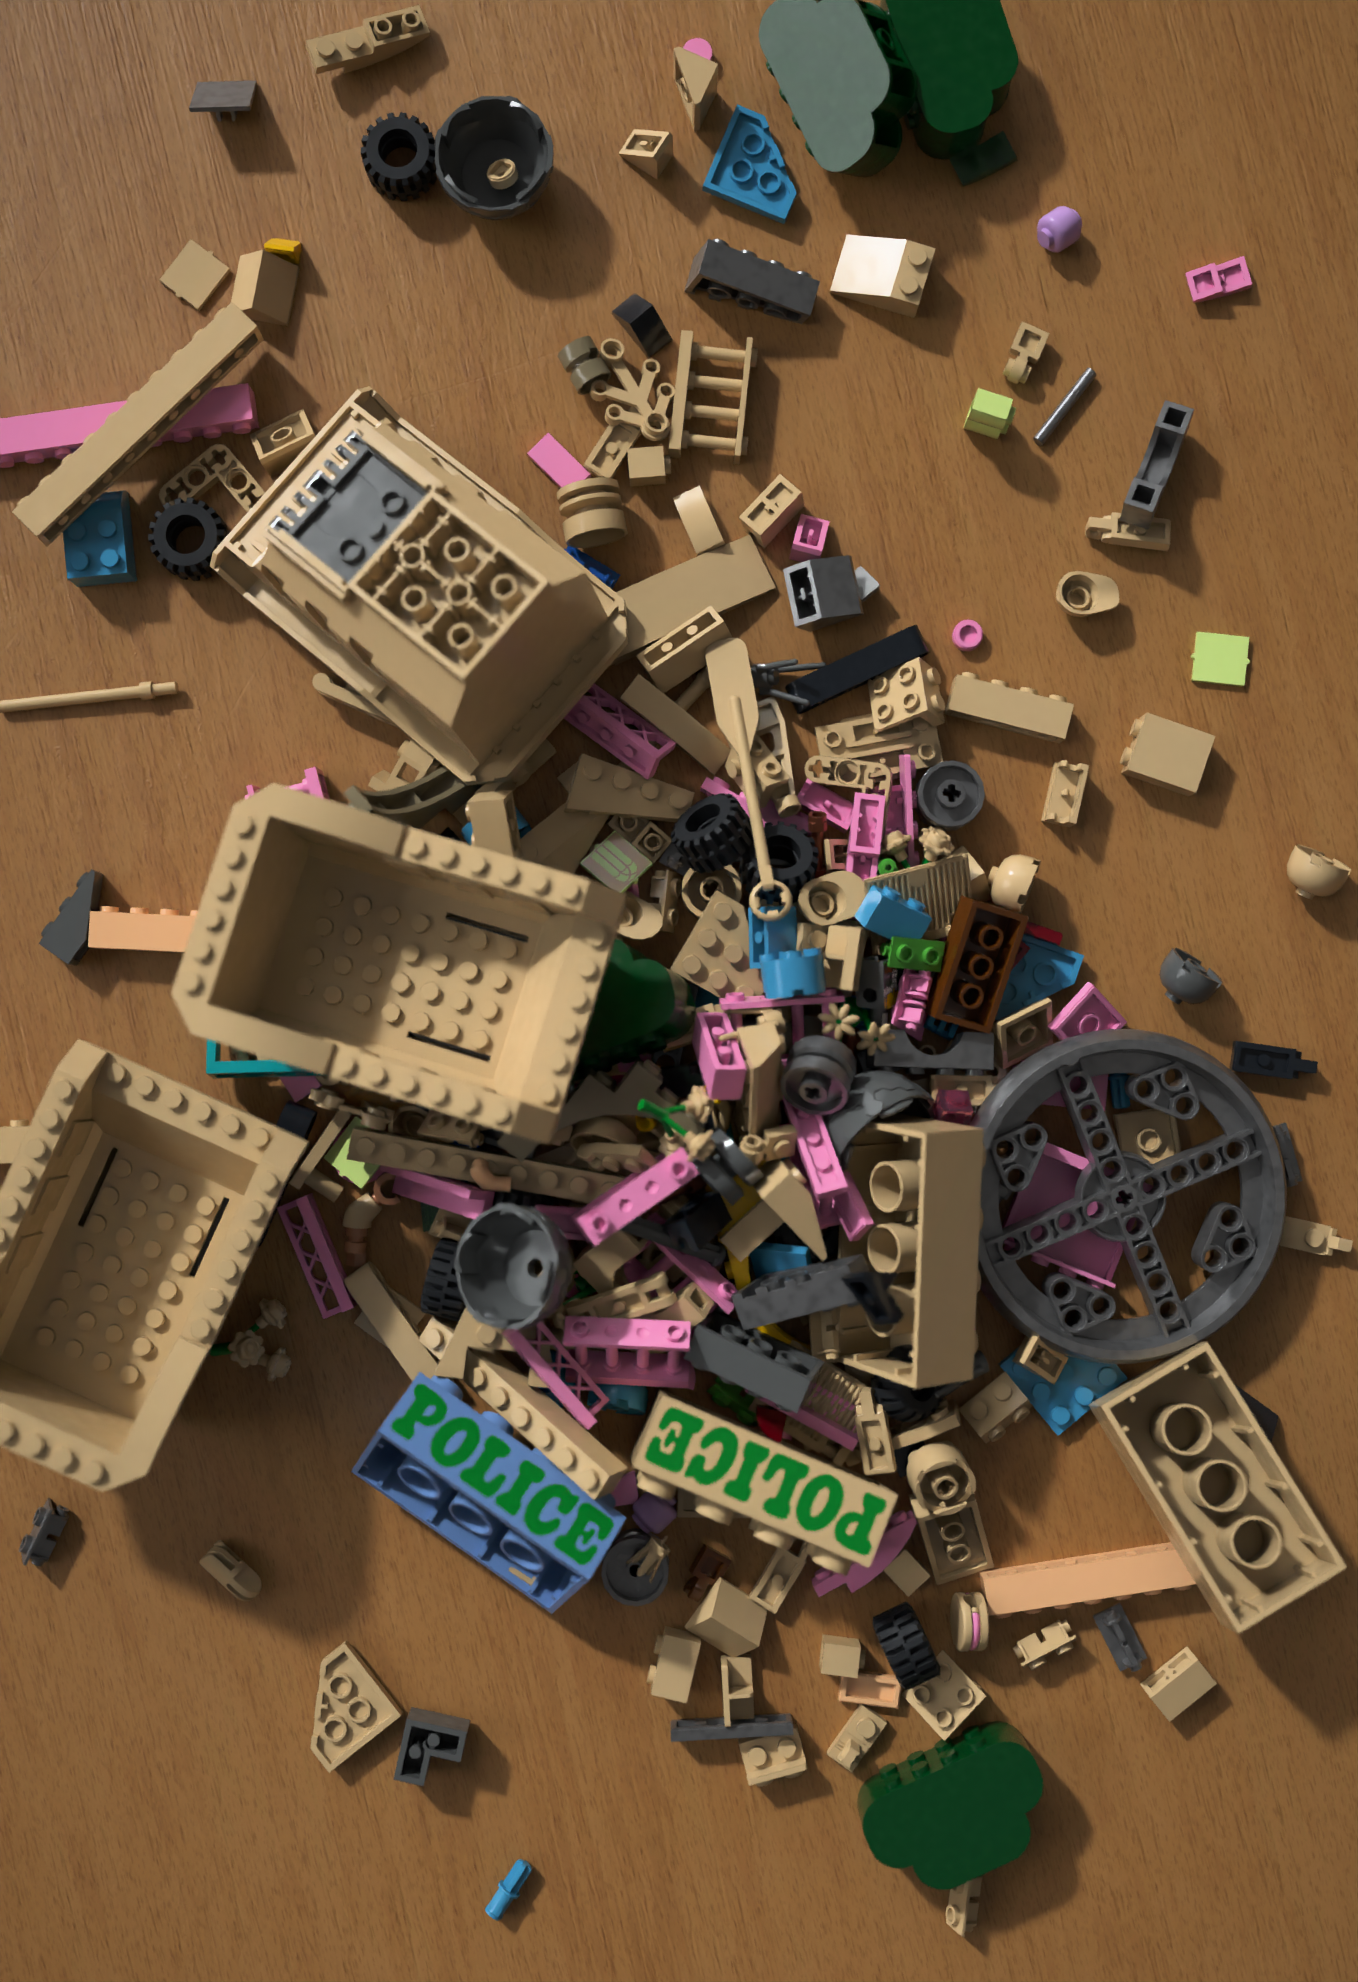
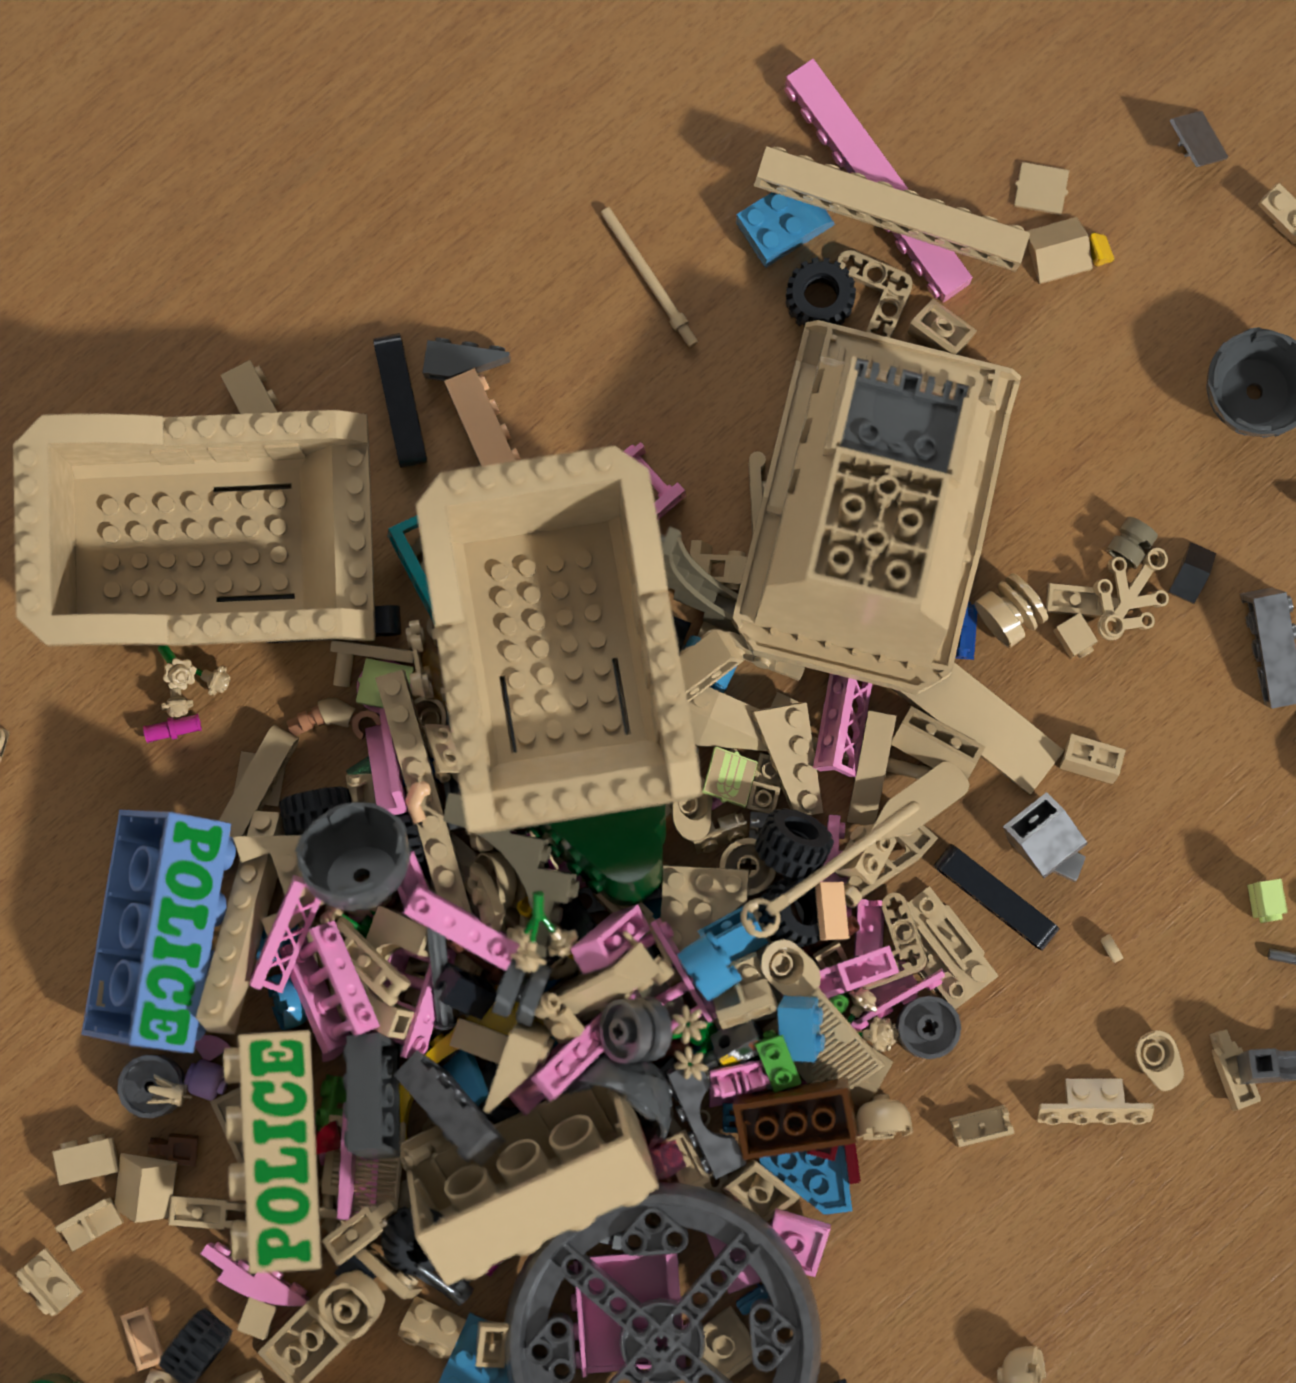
camera: 70 degrees right, 5 degrees down
(85, 1000) = (400, 400): none -> black beam
(297, 1379) = (172, 728): none -> dark pink pin
(300, 1086) = (415, 609): bright pink tile -> none
(324, 1253) = (290, 697): bright pink fence -> none
(394, 134) = (1230, 284): black tyre -> none
(502, 174) = (1255, 396): tan tile -> none
(557, 462) = (1040, 562): bright pink tile -> none
(687, 380) = (1164, 633): tan fence -> none
(698, 521) = (1052, 702): tan slope -> none
(740, 1728) = (48, 1223): flat silver tile -> none
(767, 675) = (952, 824): dark grey plant -> none
(796, 829) = (831, 911): none -> light nougat tile
(809, 538) = (1085, 801): bright pink slope -> none
(841, 1656) = (159, 1299): tan brick -> none
(852, 1211) = (538, 1114): bright pink tile -> none
(856, 1737) = (97, 1347): tan hinge -> none
(872, 1294) = (476, 1161): black slope -> none
(906, 694) = (995, 949): tan bracket -> none
(960, 585) = (1111, 948): none -> tan tile
(967, 635) = (1073, 976): bright pink tile -> none
(1009, 708) = (1029, 1042): tan brick -> none
(1095, 675) = (1095, 1103): none -> tan bracket
(1167, 754) = (1059, 1196): tan brick -> none
(1187, 978) = (876, 1309): dark grey cylinder -> none
(1220, 659) = (1165, 1203): yellowish green piece -> none

